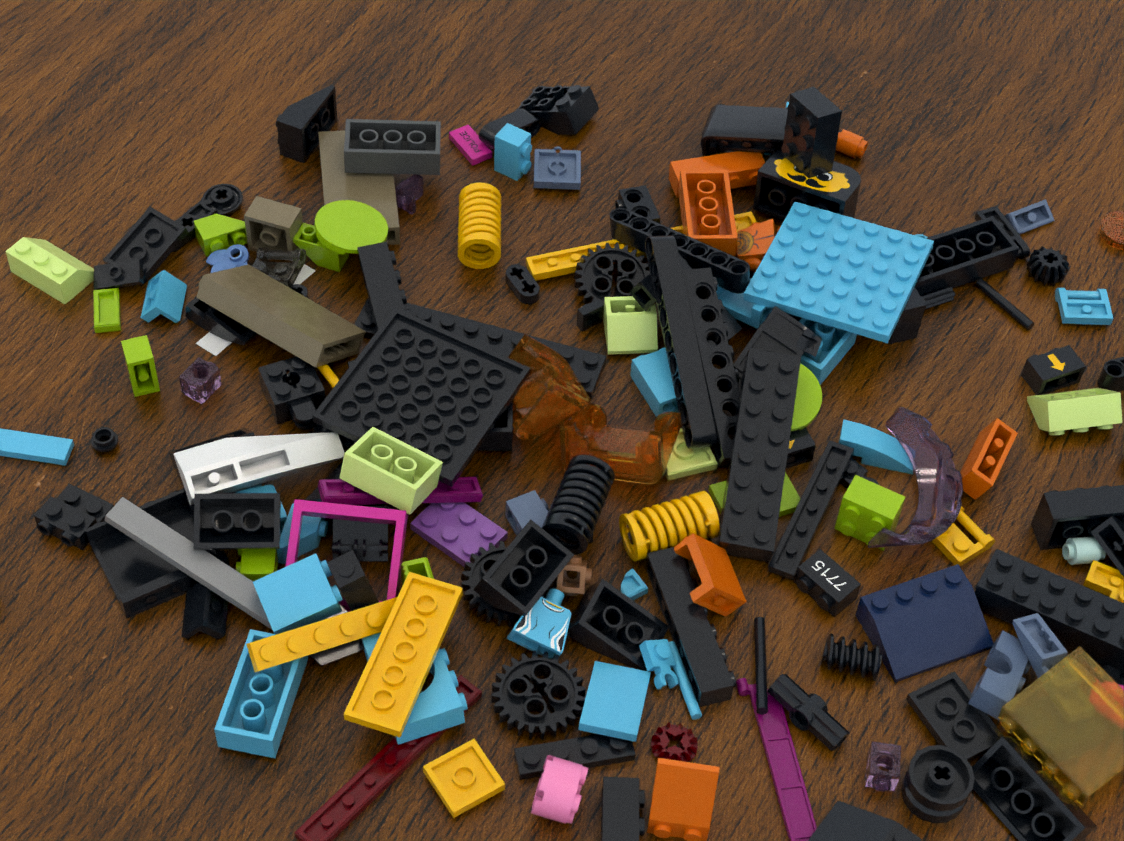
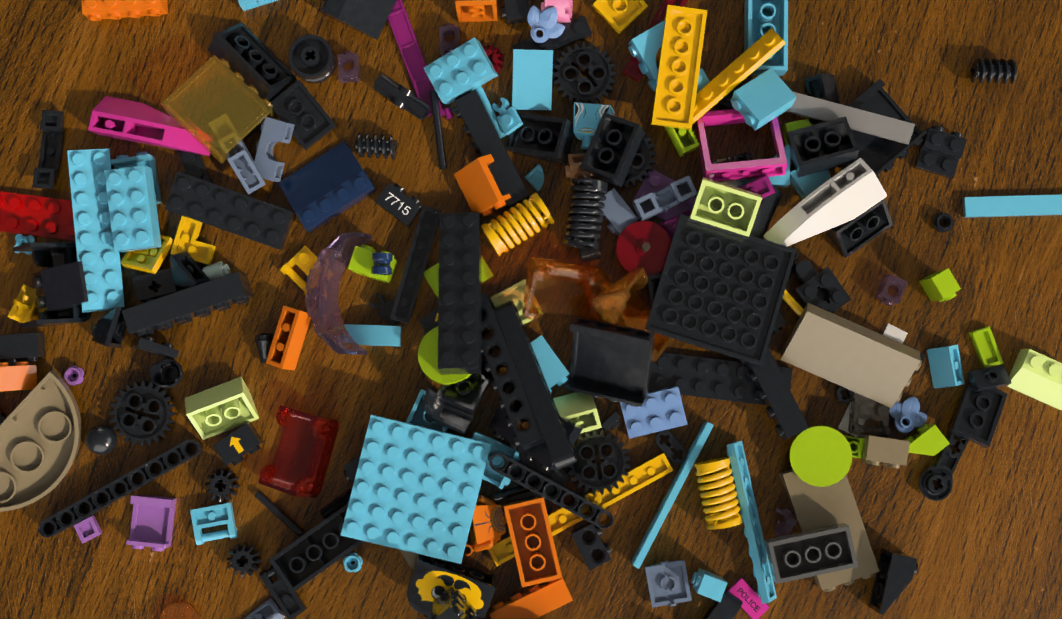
camera: 170 degrees right, 35 degrees up
(352, 581) = (730, 118): black slope -> none
(446, 206) = (750, 516): none -> medium azure plate
(486, 509) = (664, 199): none -> sand blue arch
(507, 467) = (643, 246): none -> dark red piece
(530, 240) = (671, 494): none -> medium azure tile
(535, 314) = (659, 412): none -> medium blue plate
(581, 349) = (610, 361): none -> black panel
(586, 752) = (546, 22): none -> medium blue plate
(718, 723) = (460, 71): none -> medium azure brick
(734, 767) = (448, 29): none -> brick
(860, 484) = (383, 259): none -> dark blue wheel
(978, 345) = (301, 453): none -> clear red windscreen
(1017, 463) = (263, 345): none -> black cone
(1074, 333) = (217, 490): none -> black gear

